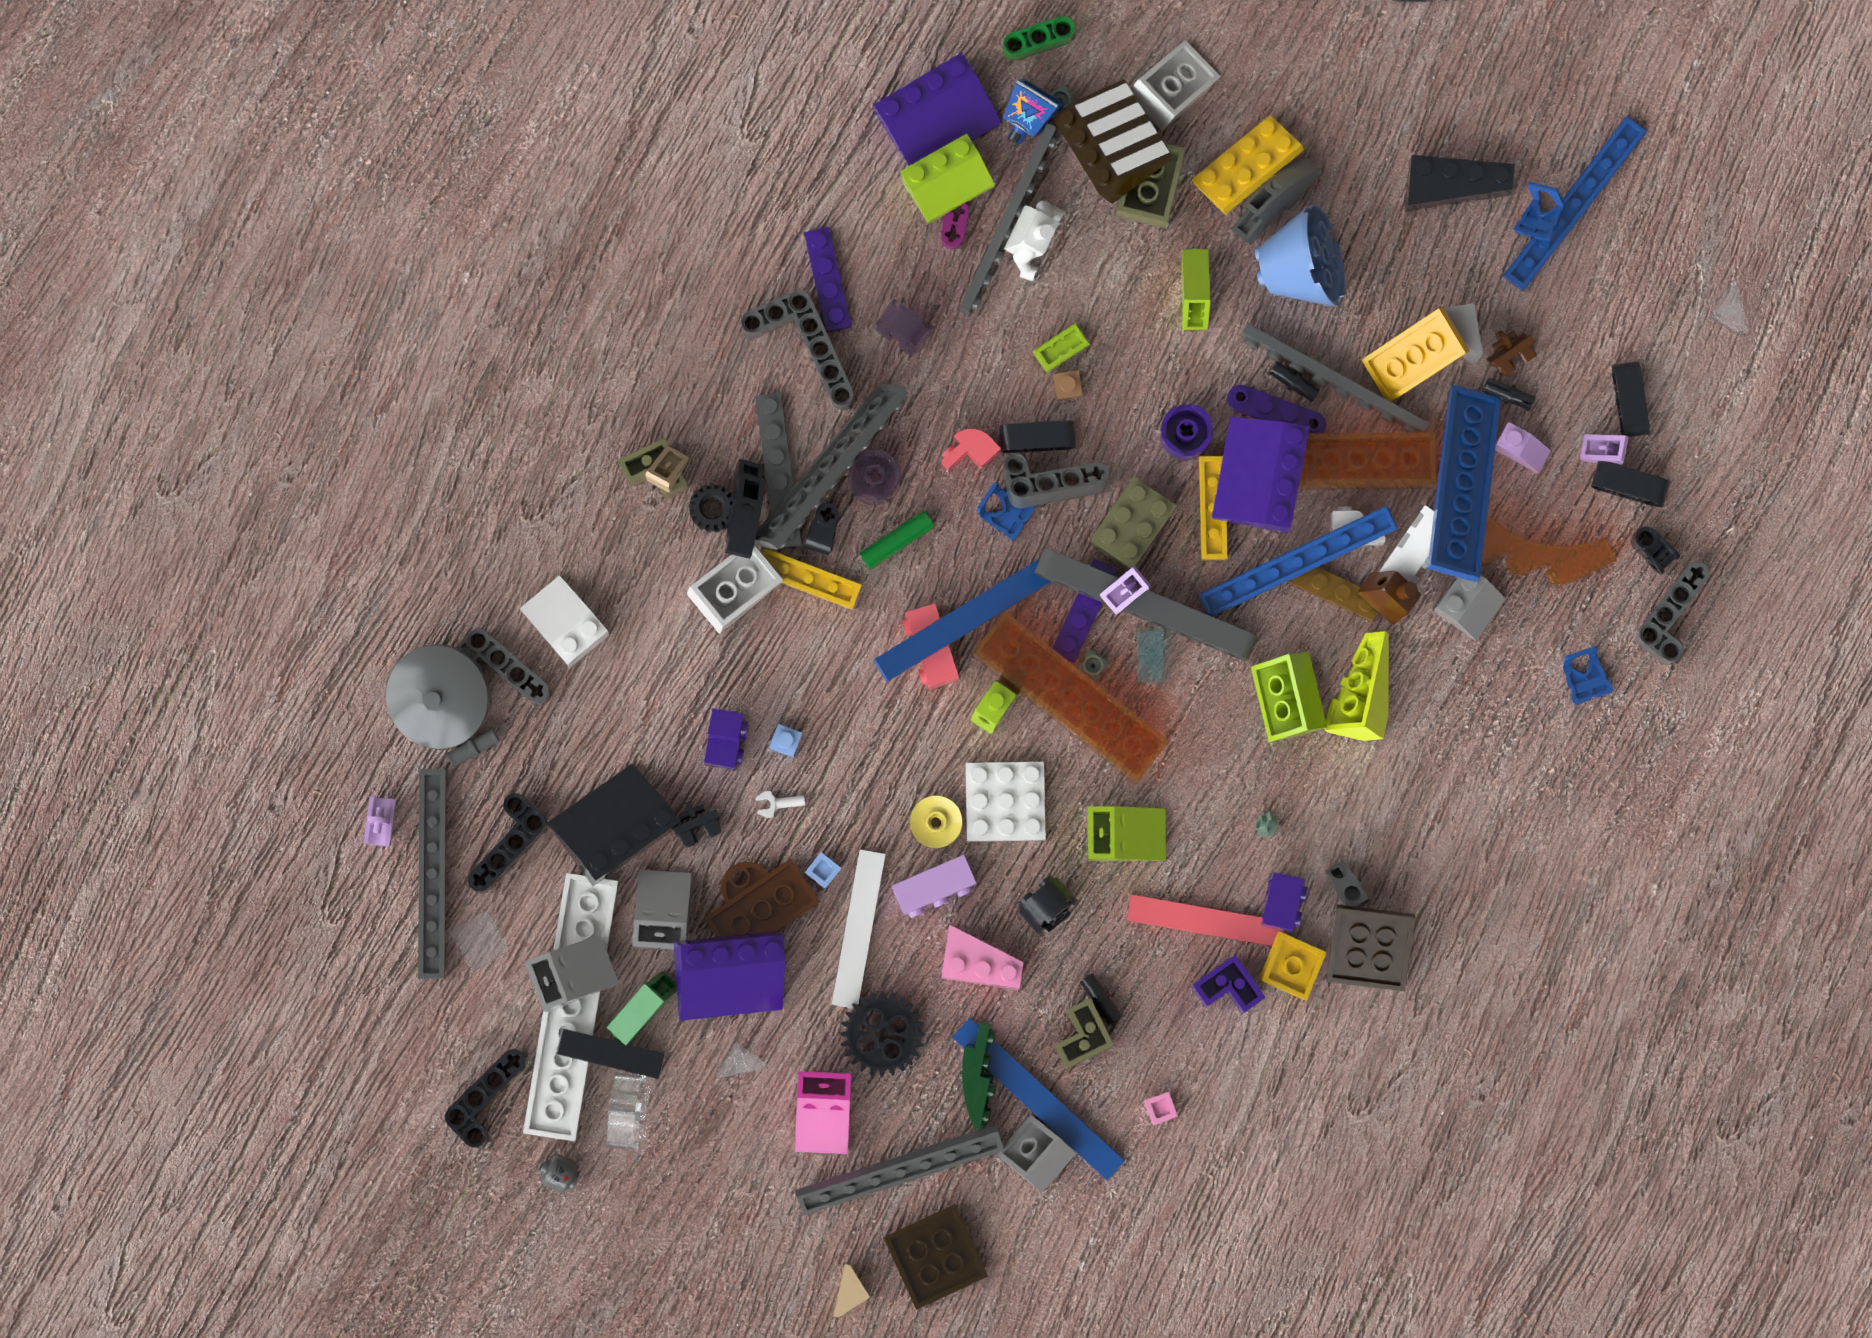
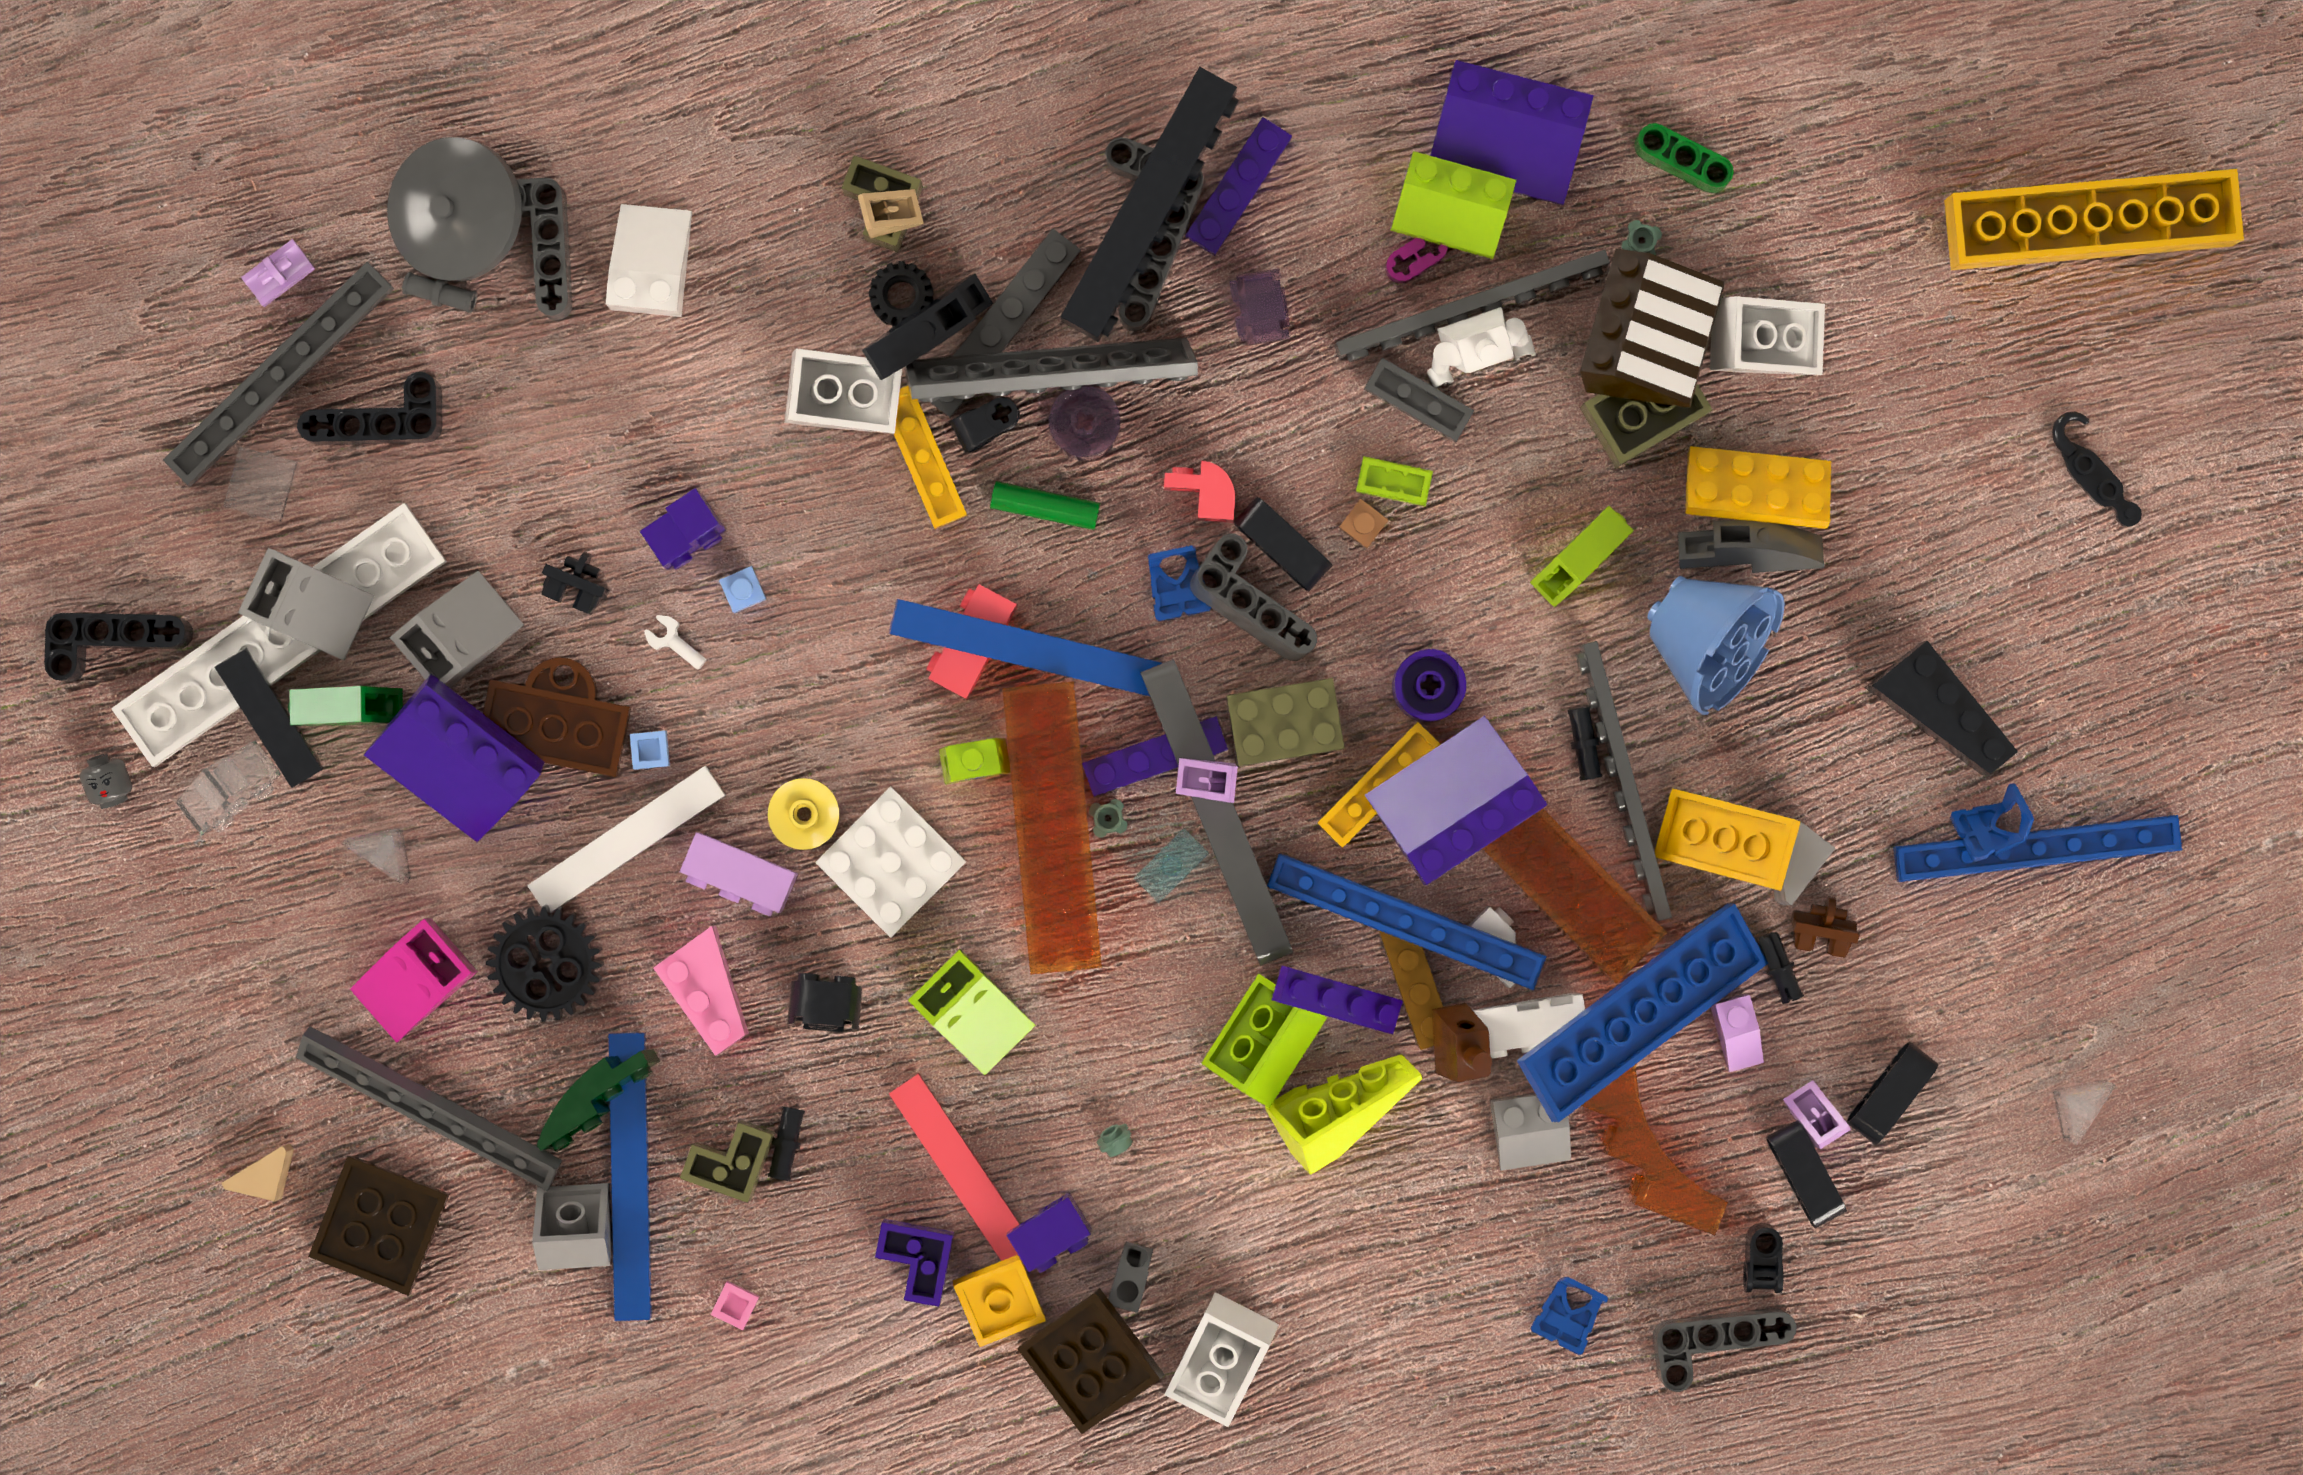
camera: 45 degrees right, 5 degrees up
(614, 824) = (495, 501): black slope -> none
(794, 332) = (1149, 205): none -> black brick
(1030, 110) = (1602, 219): blue torso -> none
(1031, 294) = (1418, 400): none -> dark grey plate
(1267, 407) = (1537, 752): dark purple plate -> none
(1305, 636) = (1337, 1000): none -> dark purple plate
(1435, 880) = (1221, 1359): none -> white slope

